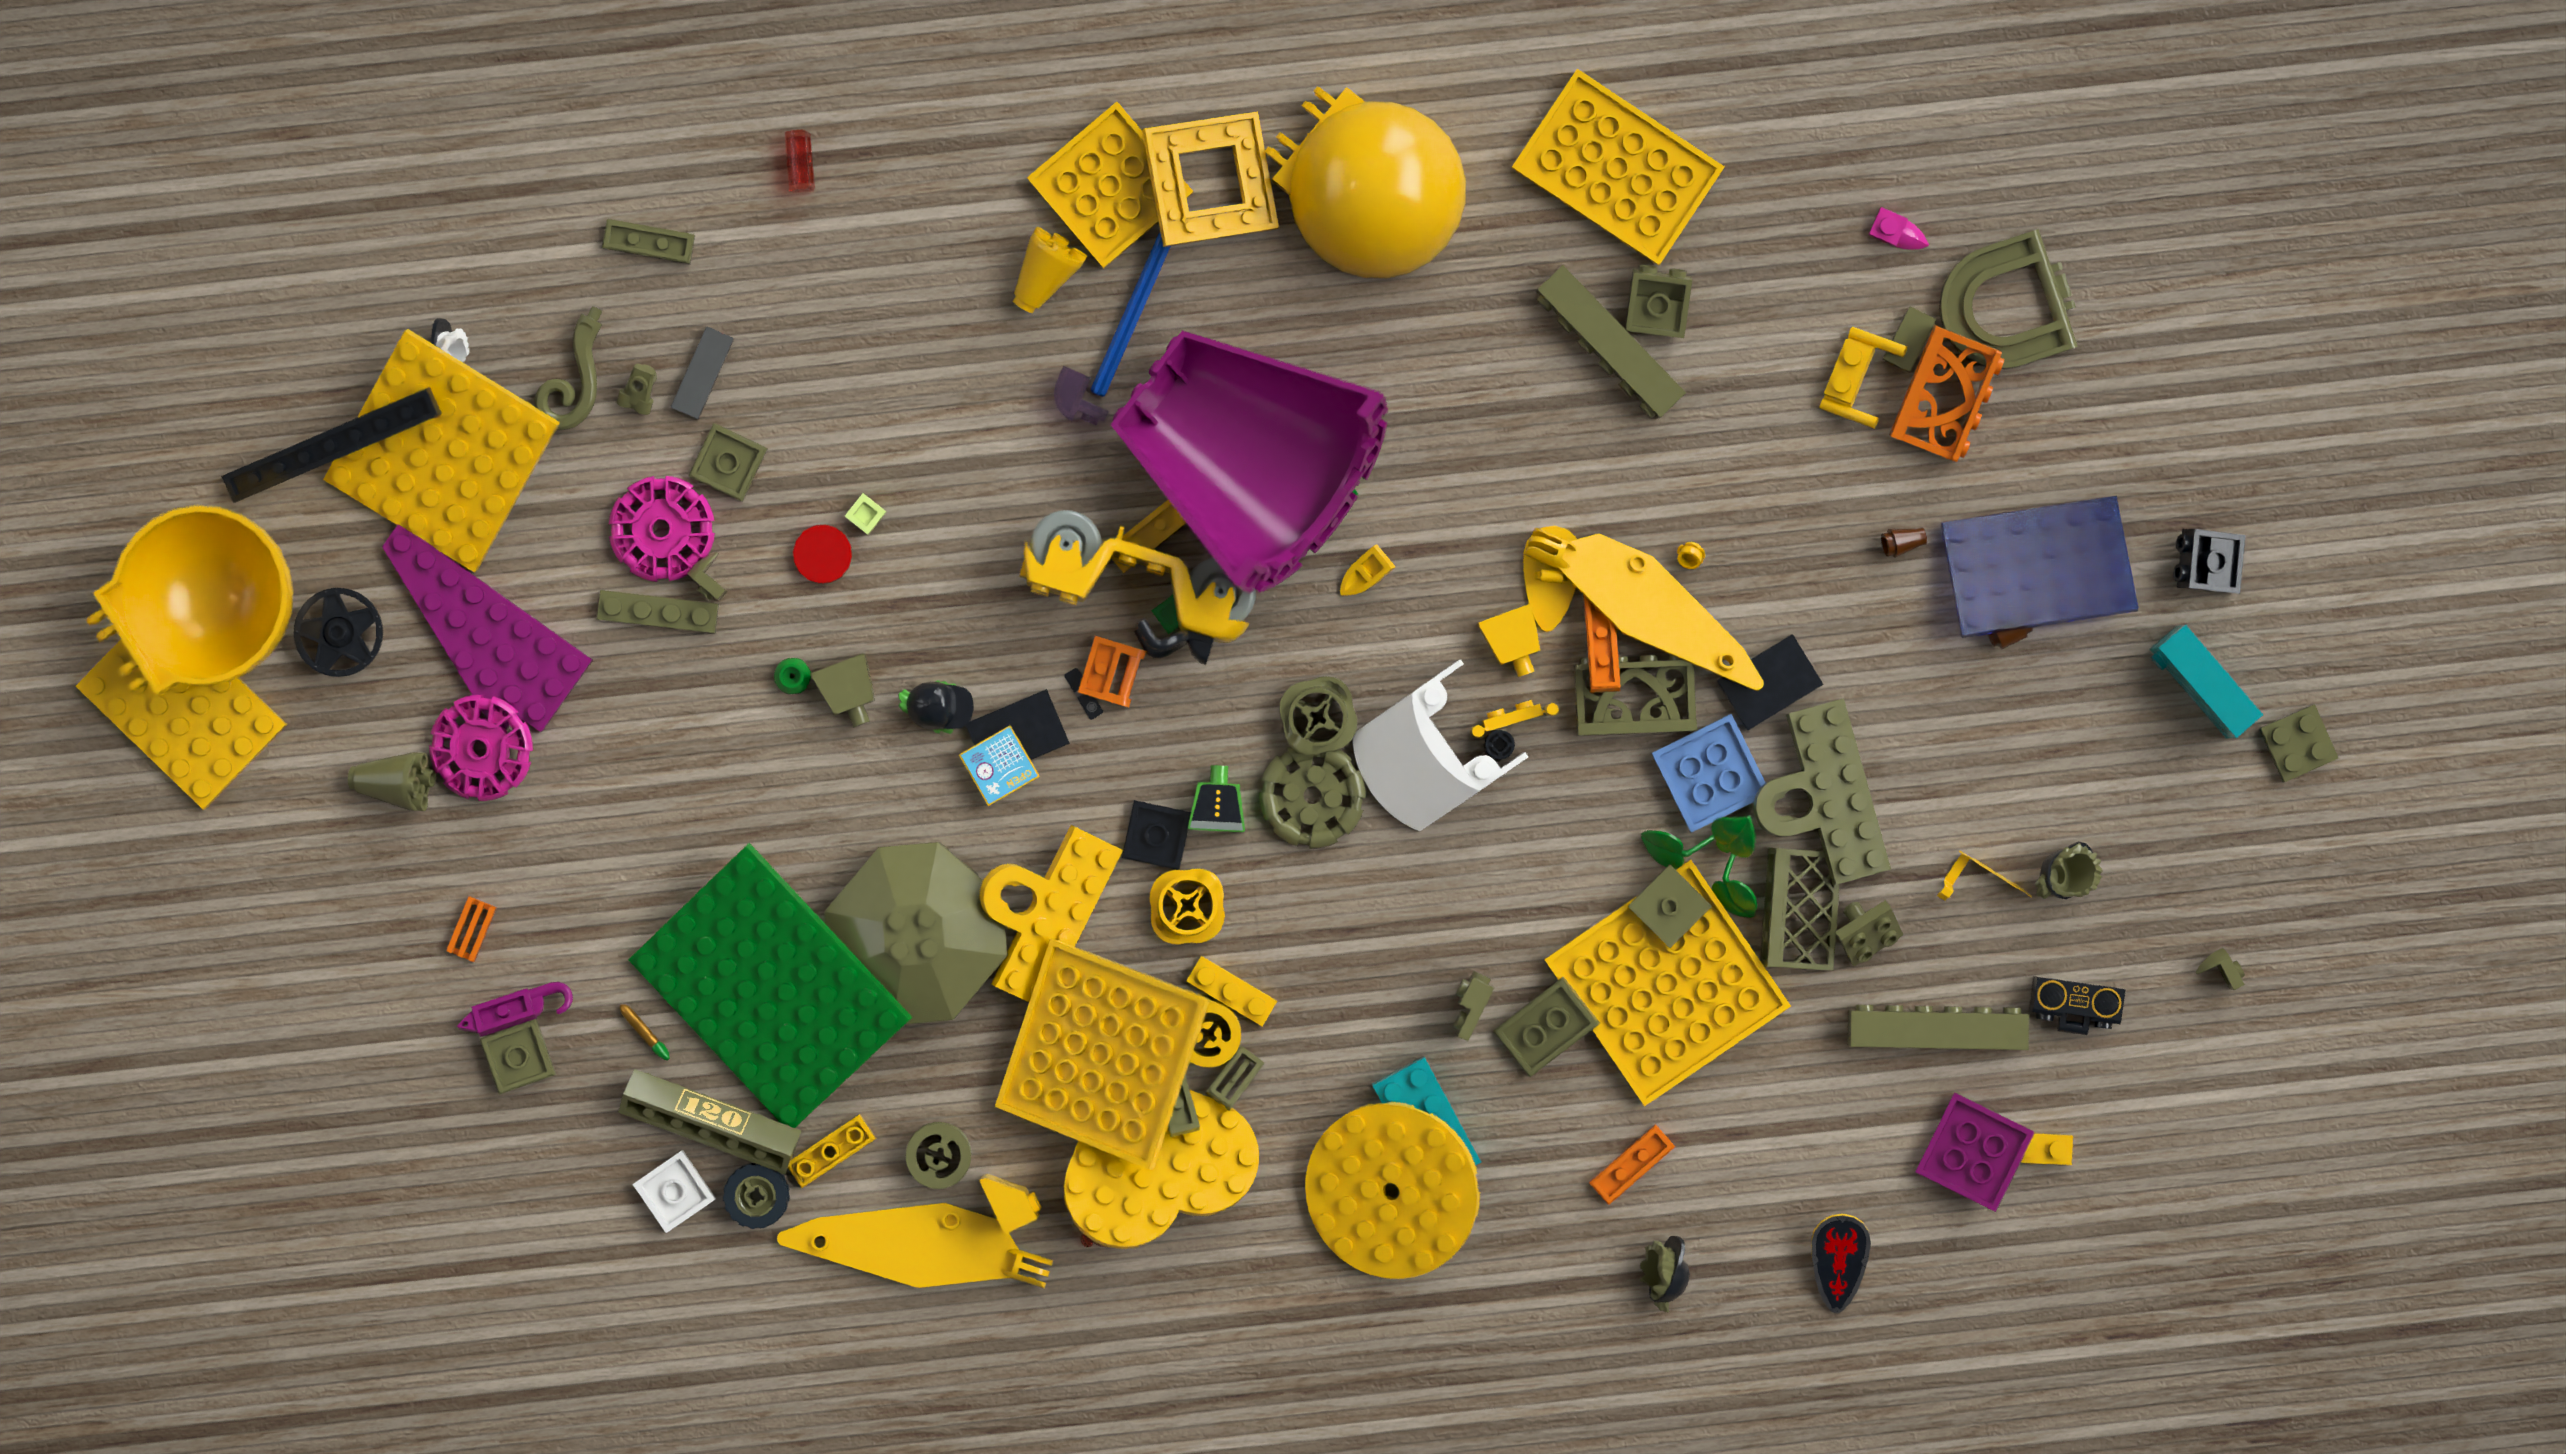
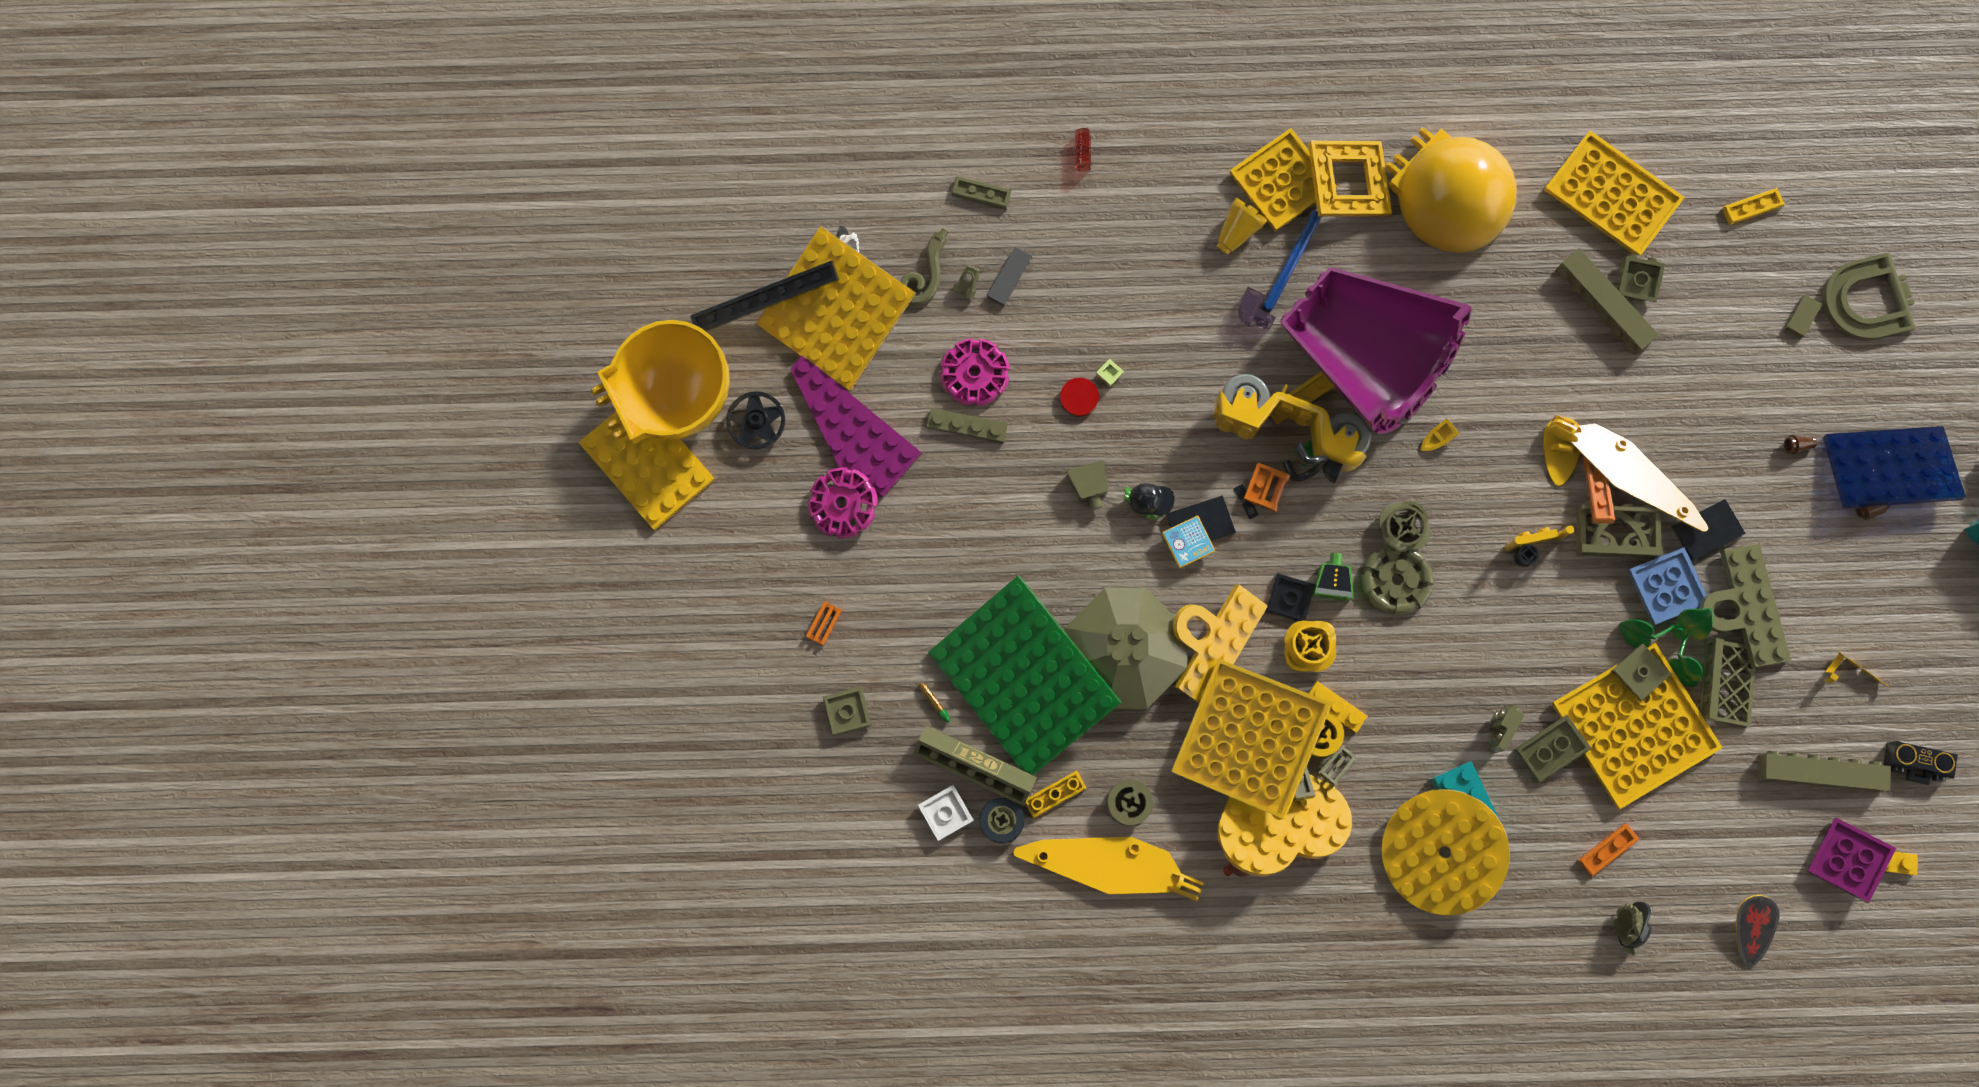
camera: 10 degrees right, 10 degrees down
(395, 780) = (783, 518): olive cone -> none
(513, 1009) = (847, 678): magenta plate -> none
(708, 586) = (1003, 411): olive plate -> none
(728, 462) = (1021, 334): olive tile -> none
(783, 679) = (1053, 480): green plate -> none
(1010, 1202) = (1178, 838): yellow slope -> none
(1412, 764) = (1469, 561): white windscreen -> none
(1513, 637) = (1537, 485): yellow torso -> none
(1690, 555) = (1657, 446): yellow plate -> none
(1832, 169) = (1753, 206): none -> yellow tile
(1850, 372) = (1765, 333): yellow plate -> none
(1868, 931) = (1778, 700): olive plate -> none
(1897, 231) = (1794, 247): dark pink plate -> none
(1934, 354) = (1805, 359): orange fence -> none
(2069, 872) = (1917, 671): olive hair -> none

